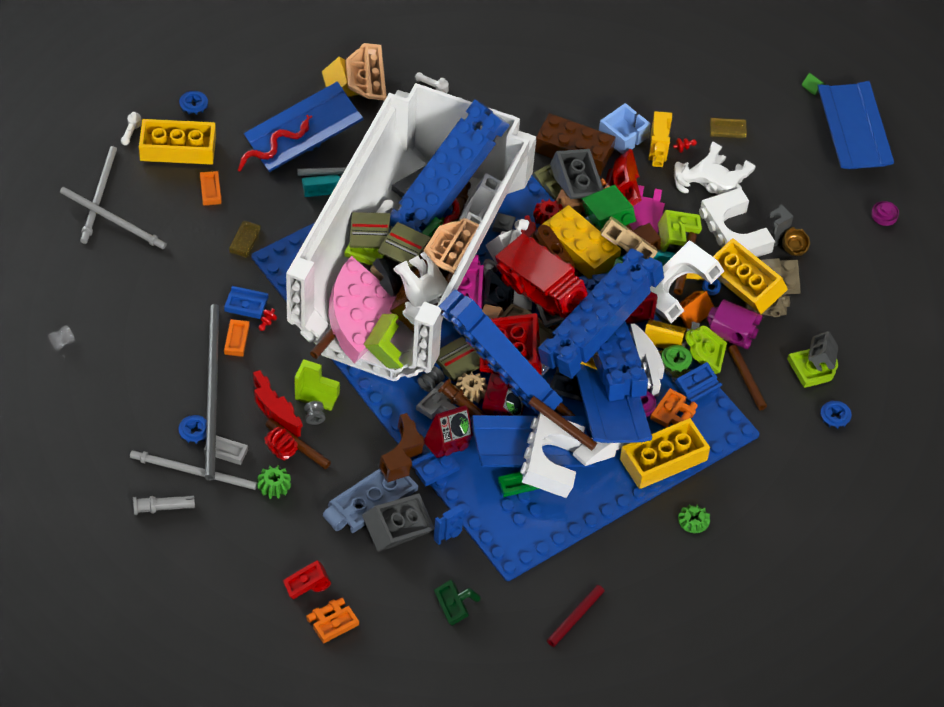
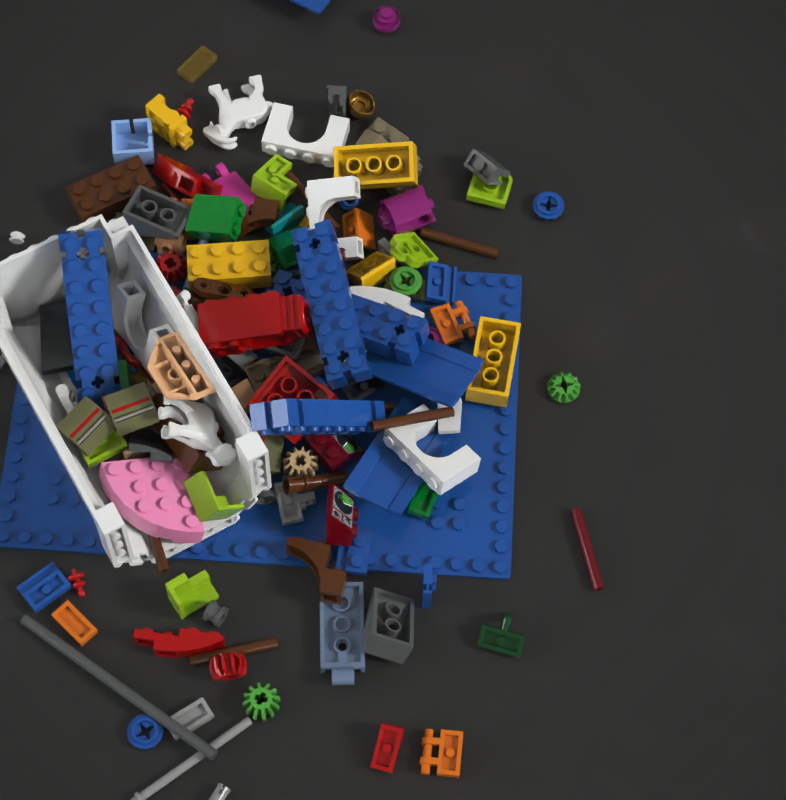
camera: 50 degrees left, 10 degrees up
(626, 238) = (272, 225): tan arch -> none

